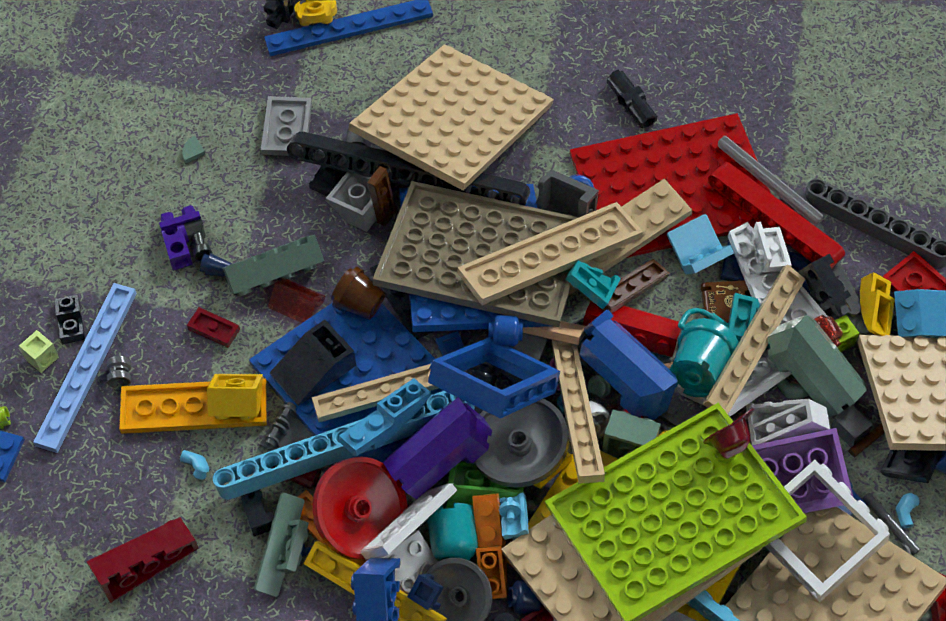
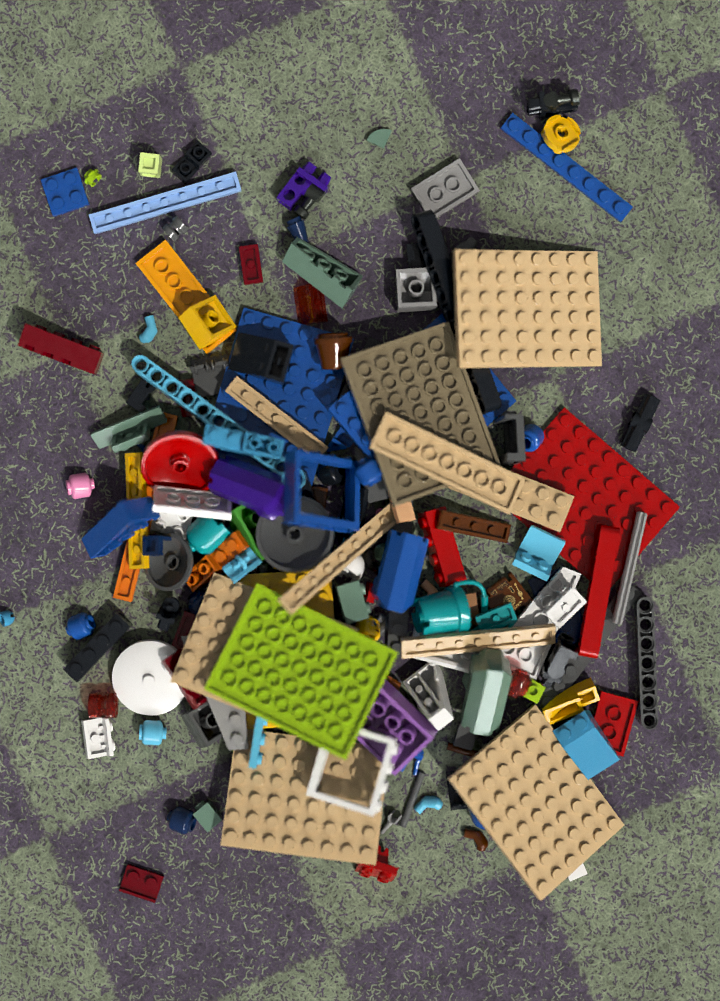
camera: 55 degrees right, 30 degrees up
(381, 196) = (422, 309): reddish brown tile -> none
(592, 283) = (445, 507): teal wing -> none
(599, 320) = (418, 528): blue tile -> none
(731, 439) = (371, 681): dark red piece -> none

